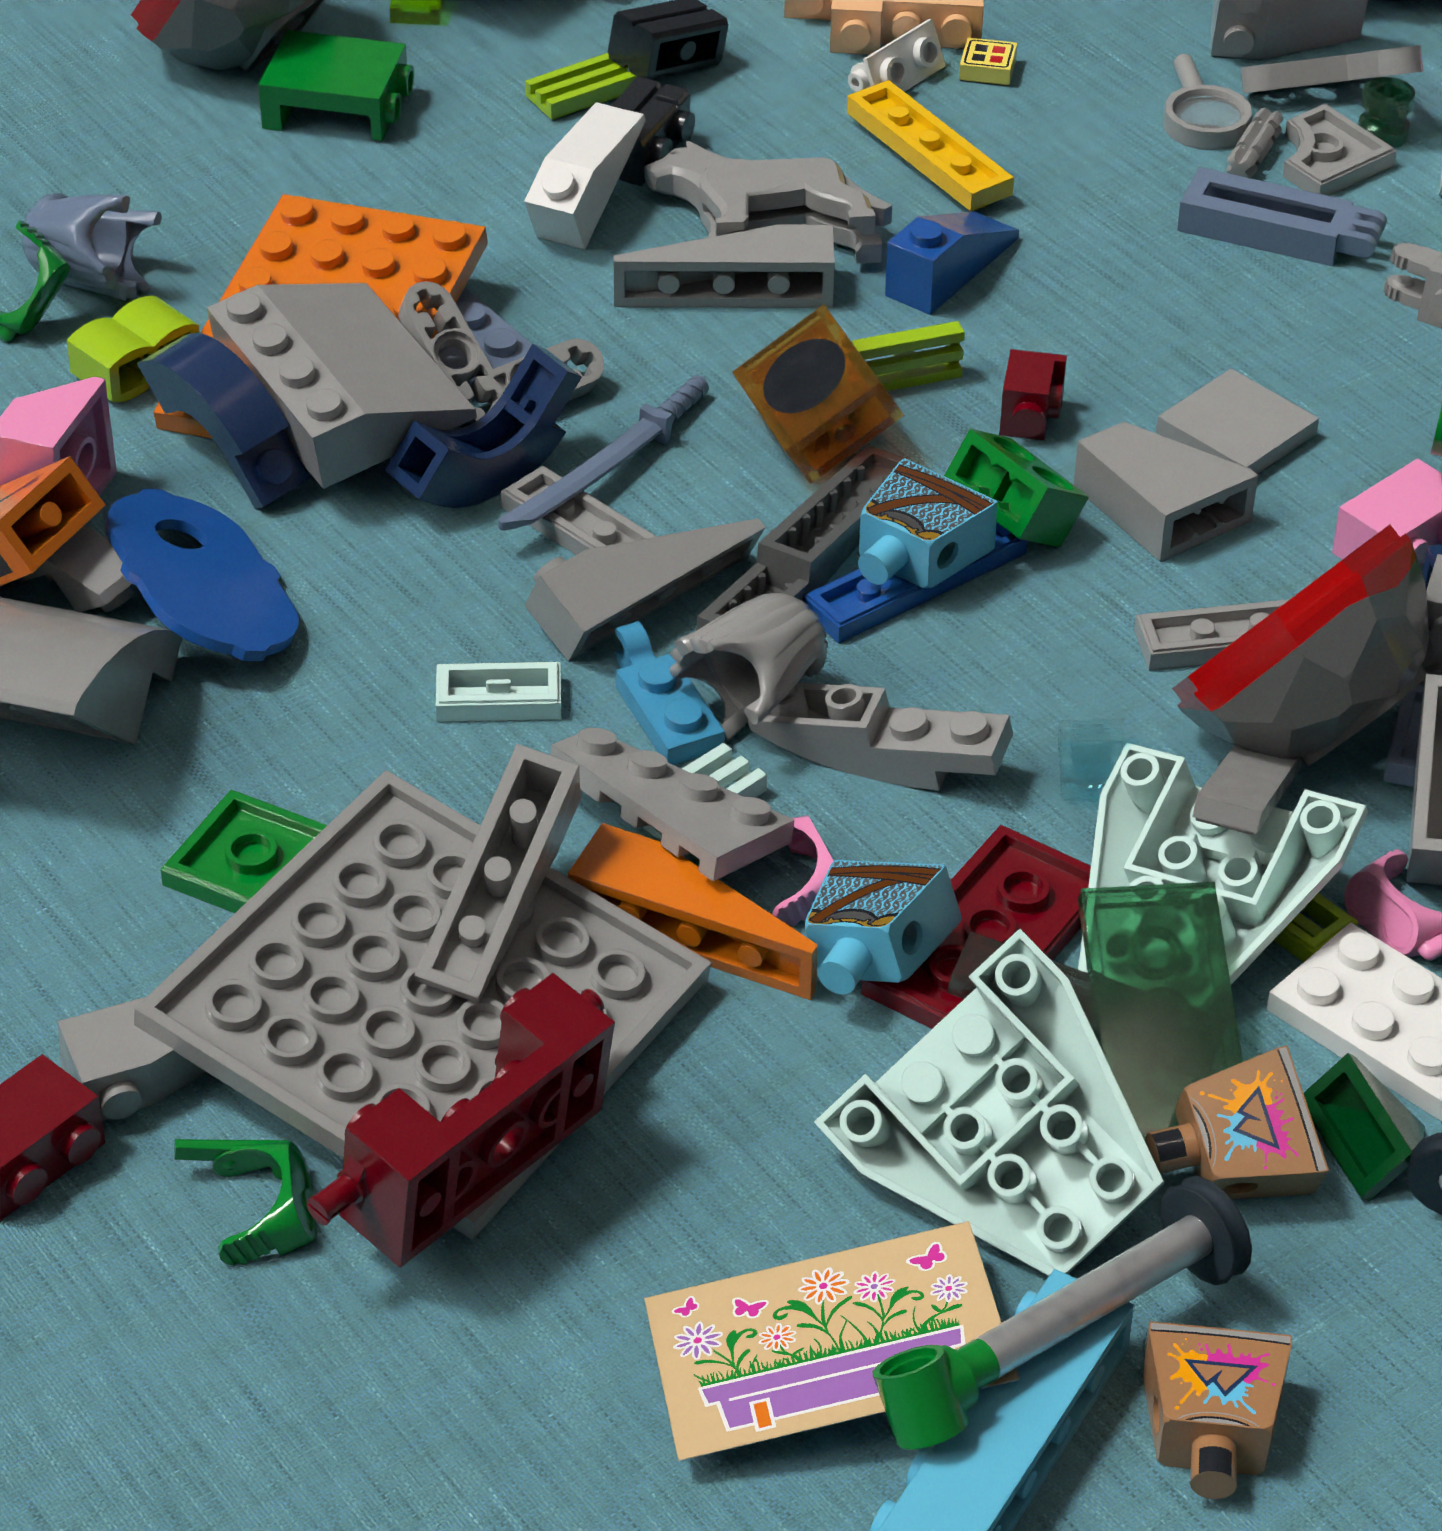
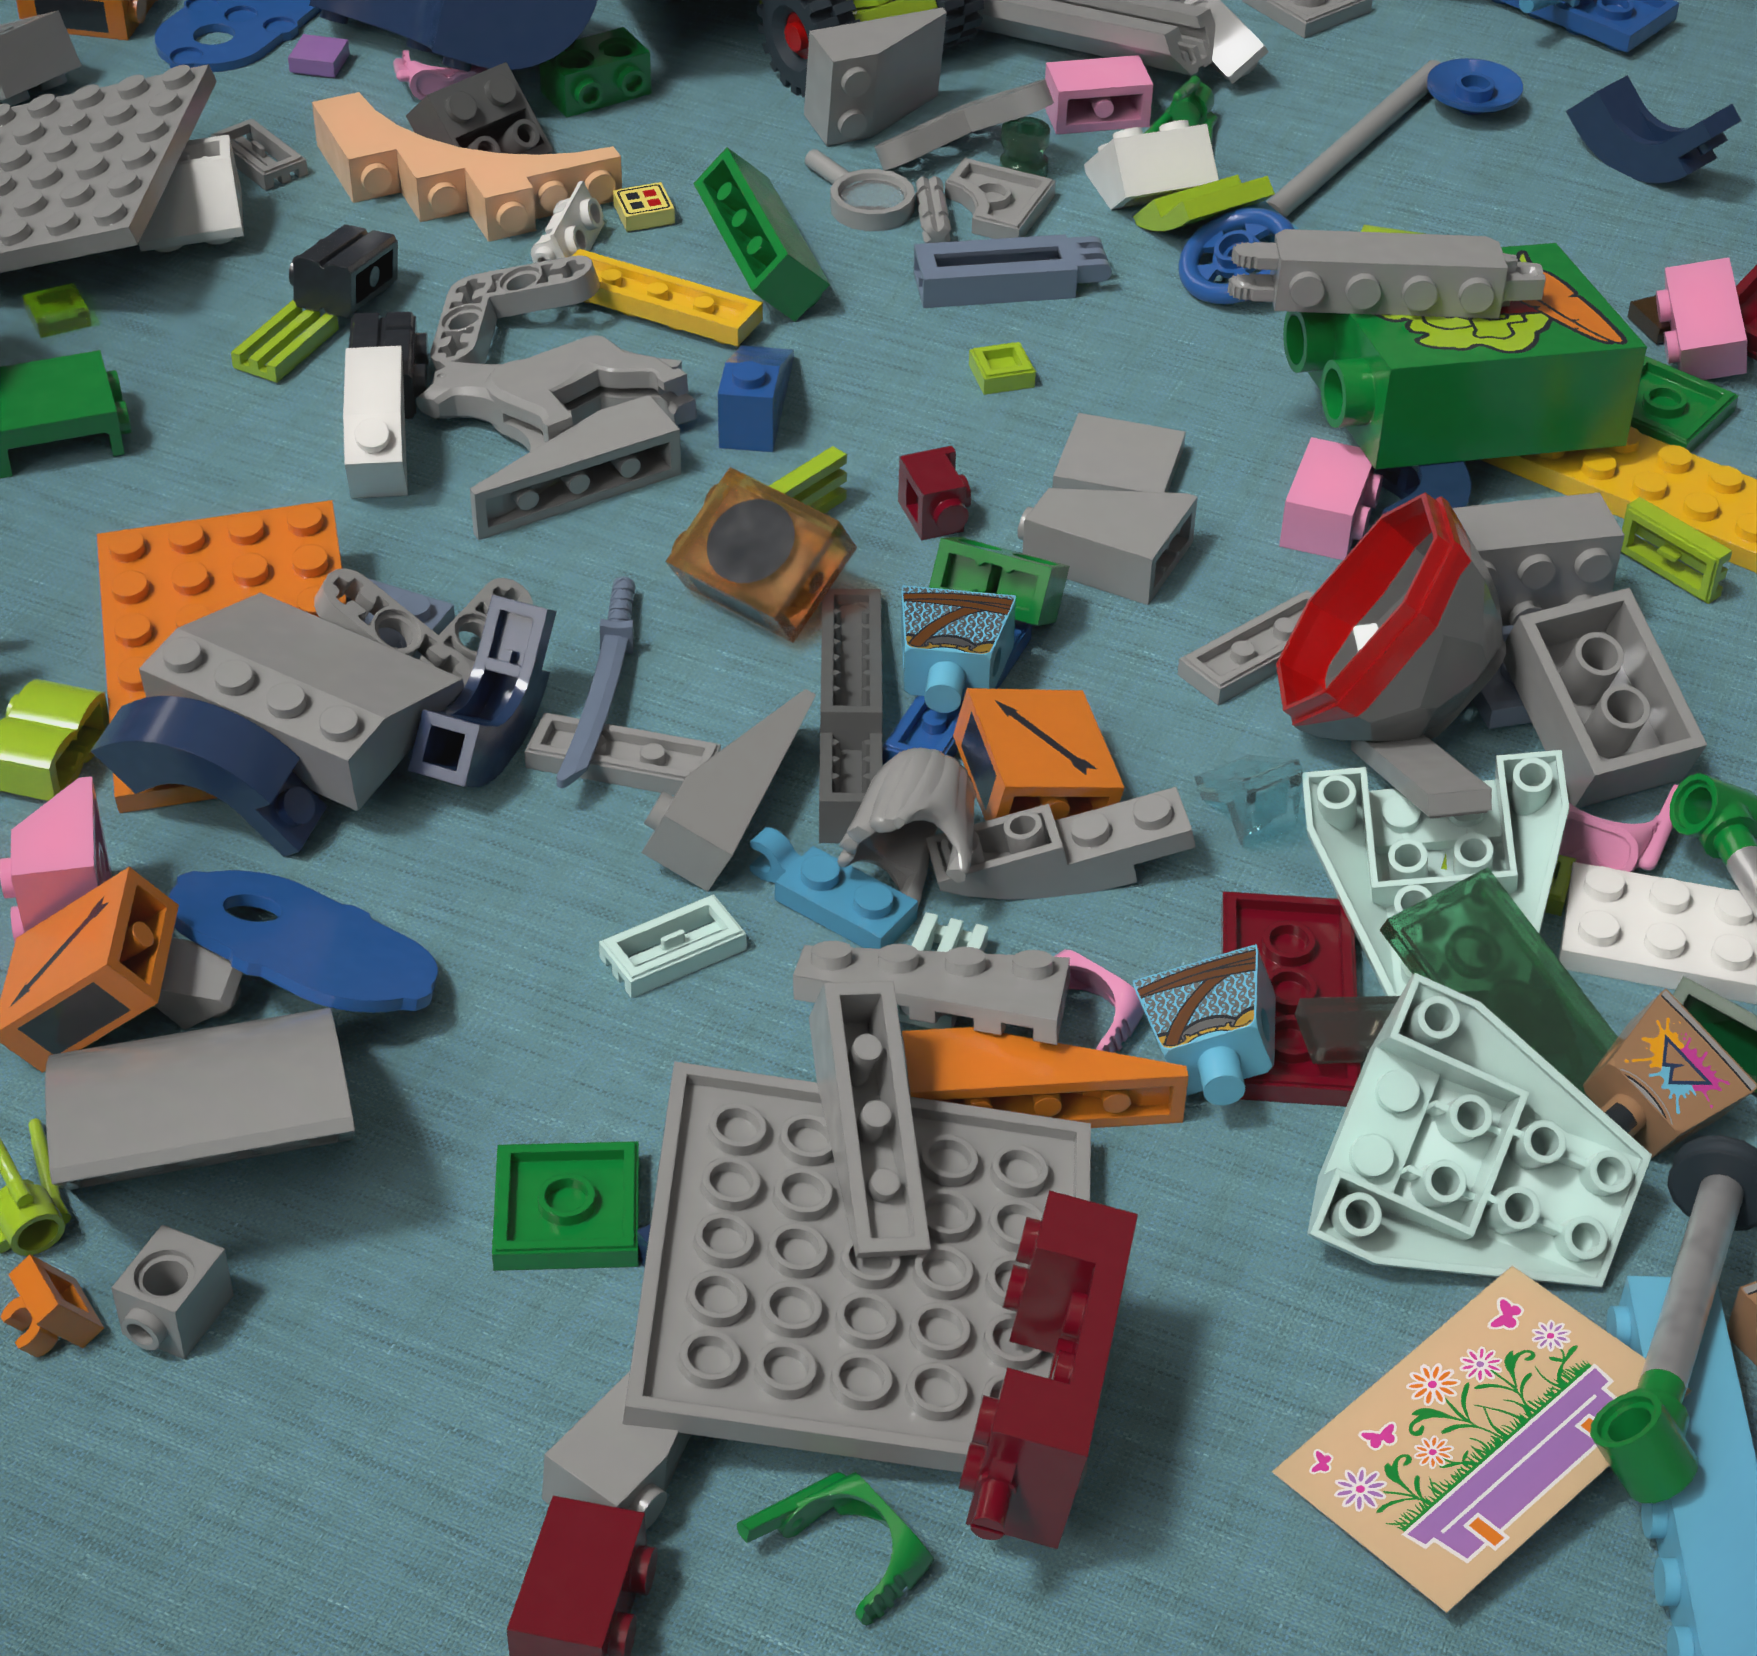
camera: 30 degrees left, 0 degrees up
(784, 100) = (480, 299): none -> light grey beam
(921, 642) = (1034, 752): none -> orange brick
(1059, 116) = (761, 235): none -> green brick
(1199, 306) = (1002, 368): none -> lime tile

